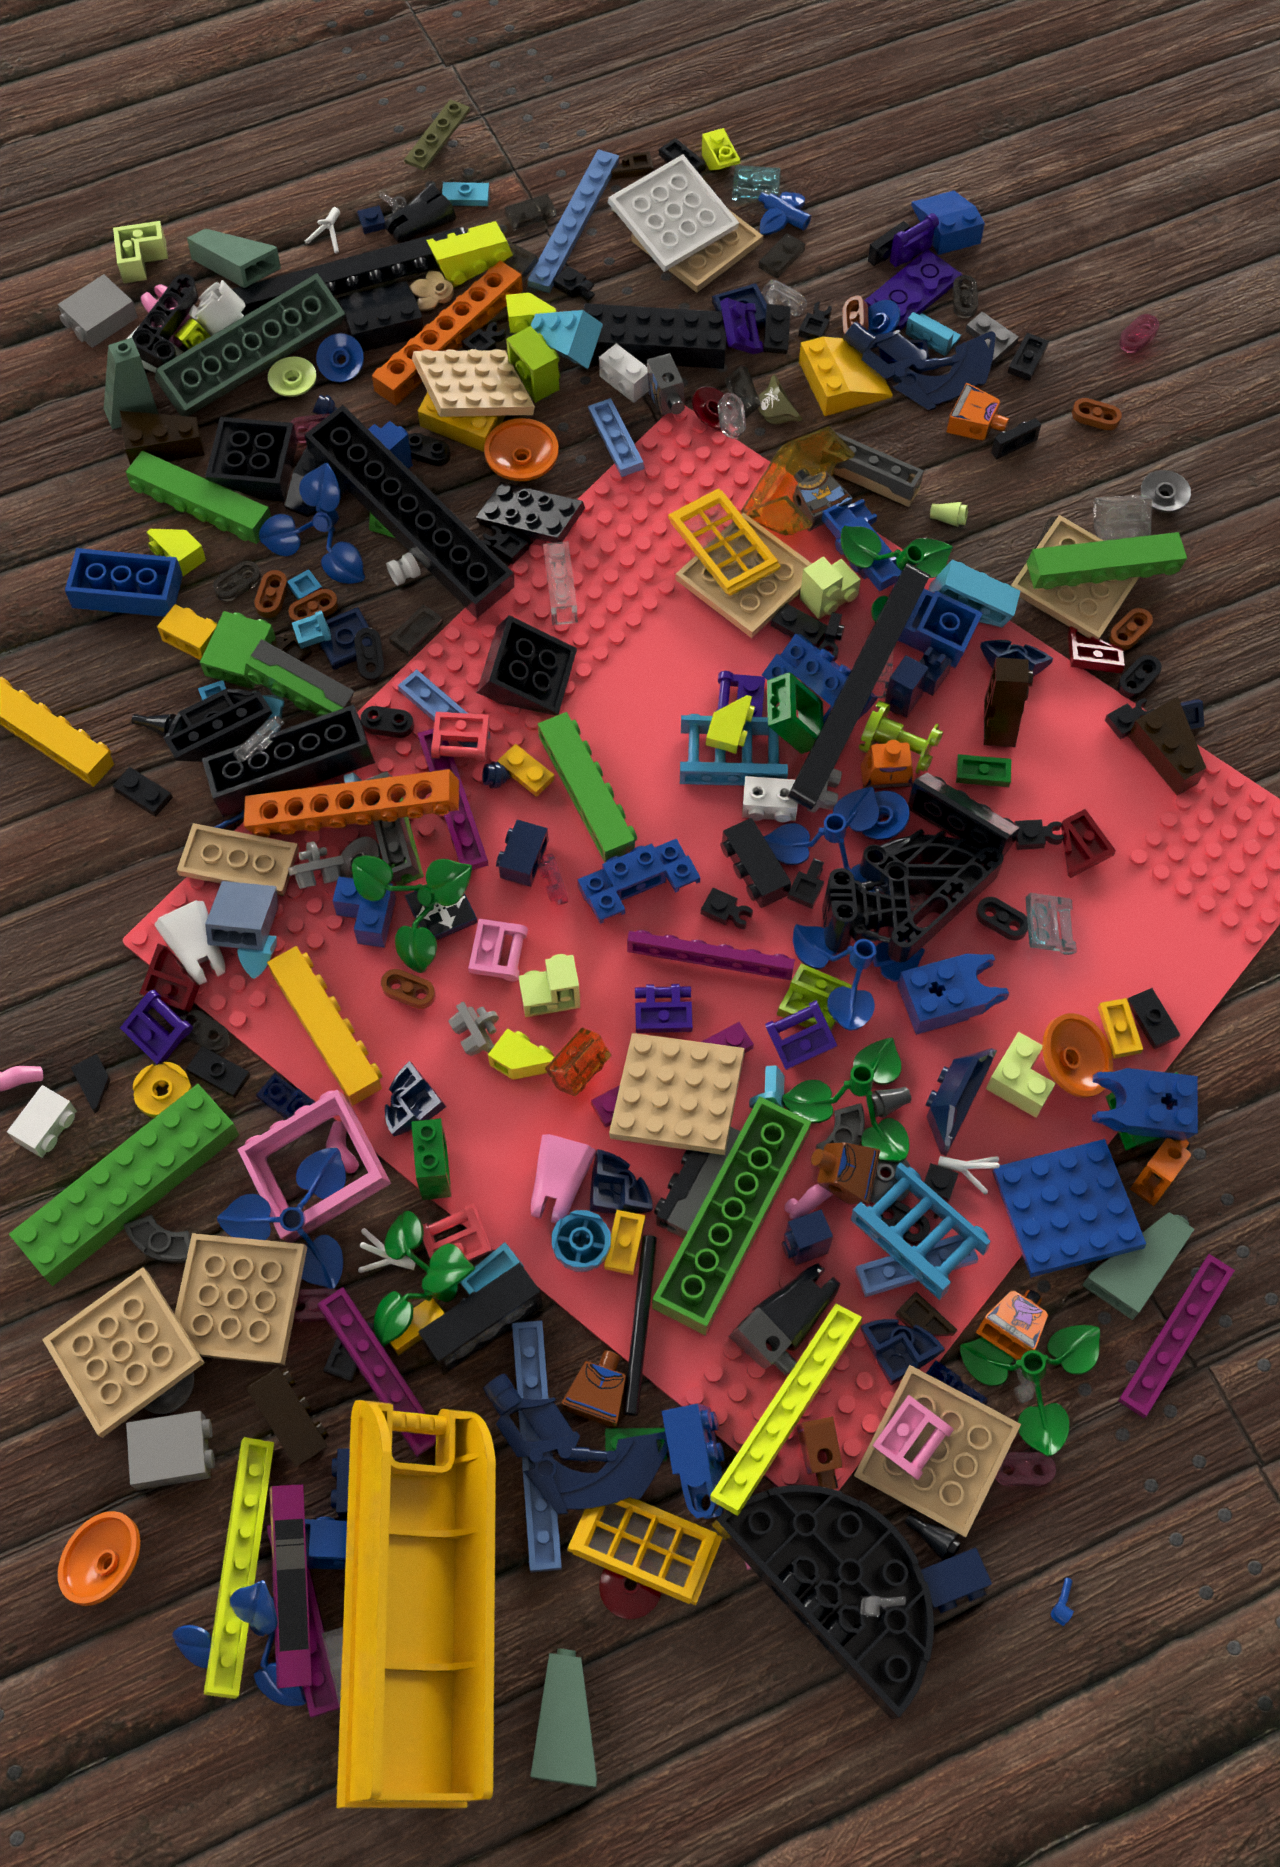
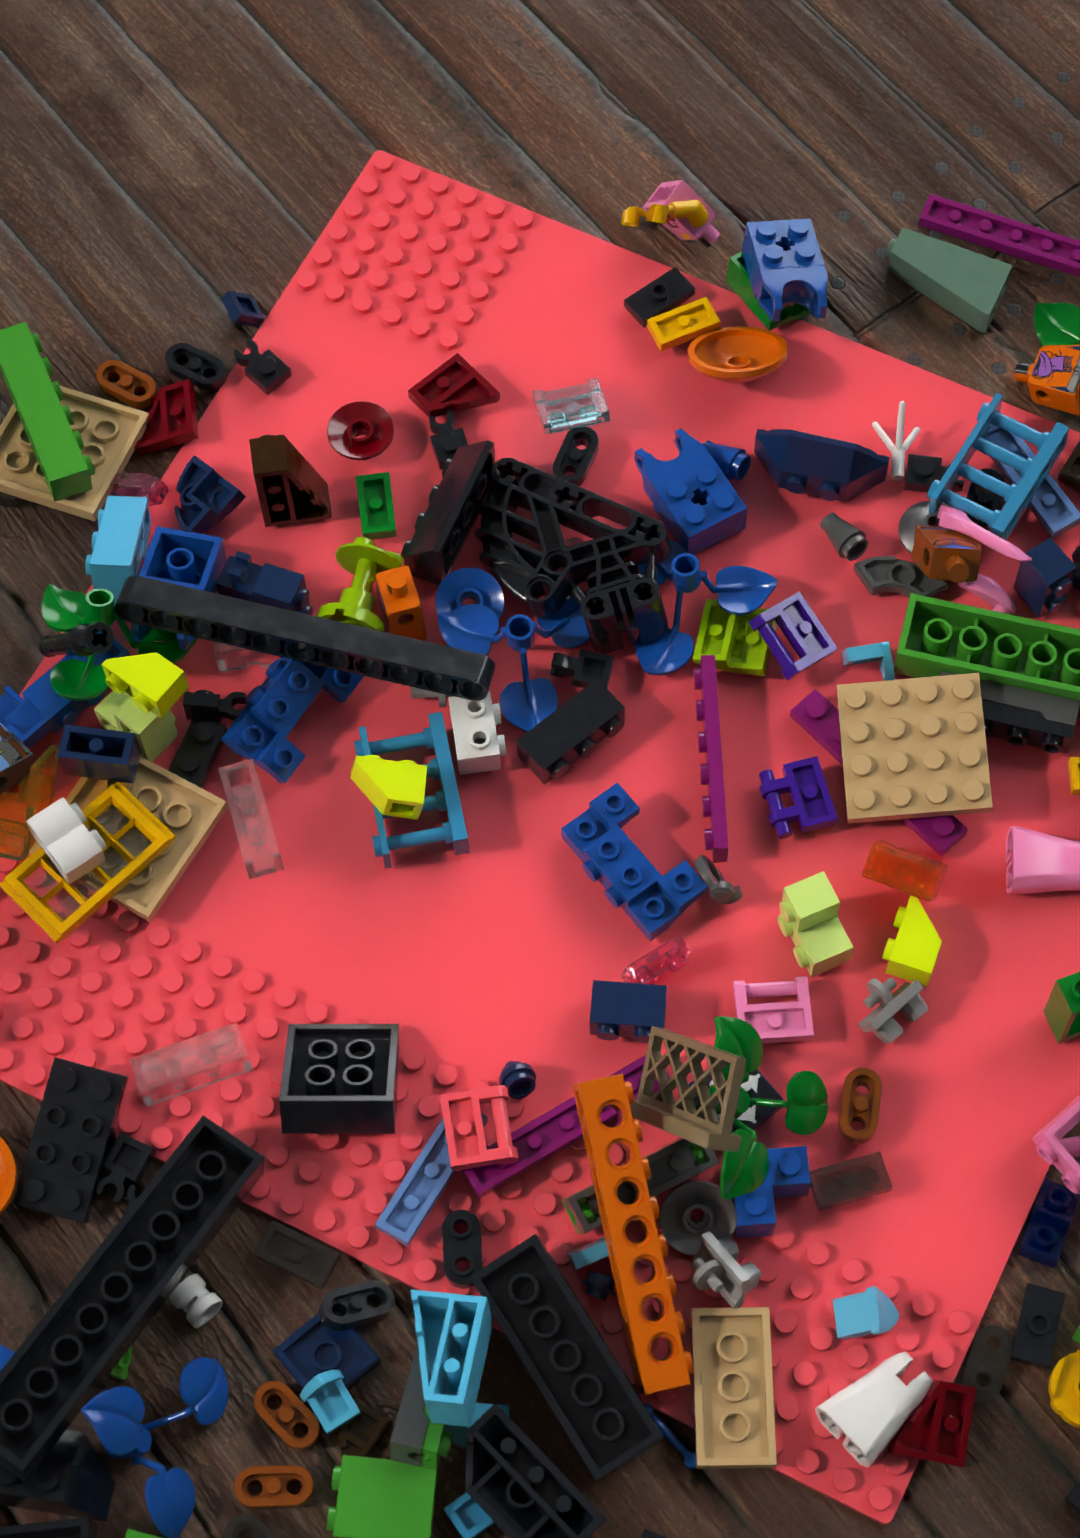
camera: 100 degrees left, 0 degrees up
(149, 1033) = (1019, 1427): dark purple plate -> none
(241, 915) = (825, 1343): sand blue brick -> none
(259, 739) = (560, 1391): clear plate -> none
(303, 680) = (452, 1352): none -> medium azure wedge
(304, 584) = (251, 1439): dark azure plate -> none
(325, 1026) = (942, 1195): yellow brick -> none
(355, 967) = (849, 1181): none -> clear smoke plate
(410, 1101) = (1008, 1063): dark blue brick -> none
(423, 847) = (681, 1116): none -> dark tan fence
(526, 770) = (496, 1044): yellow plate -> none
(586, 787) = (509, 956): bright green brick -> none
(598, 941) = (719, 888): none -> dark grey piece
(616, 1187) = (1041, 800): dark blue brick -> none
(722, 906) = (639, 762): black plate -> none
(732, 642) = (251, 818): none -> clear brick
(735, 522) = (66, 839): none -> white brick
(746, 685) = (325, 792): dark purple plate -> none
(794, 696) = (357, 707): green window -> none
(799, 550) = (99, 753): none -> dark blue brick
(837, 574) = (148, 679): none -> neon yellow slope
(871, 1181) = (959, 521): none -> bright pink piece
(872, 1064) = (798, 557): green plant -> none
(885, 543) = (82, 641): none -> black pin
(978, 1029) = (731, 460): none -> blue cone
(1017, 1081) = (775, 409): yellowish green brick -> none
(1028, 620) = (140, 486): none -> clear pink plate
(1055, 761) = (356, 420): none -> dark red dish
(1068, 1208) = (916, 343): blue plate -> none
(1166, 1164) = (847, 265): orange torso -> none
(1169, 745) = (299, 314): dark brown wedge -> none
(1235, 1043) = (677, 209): none -> torso

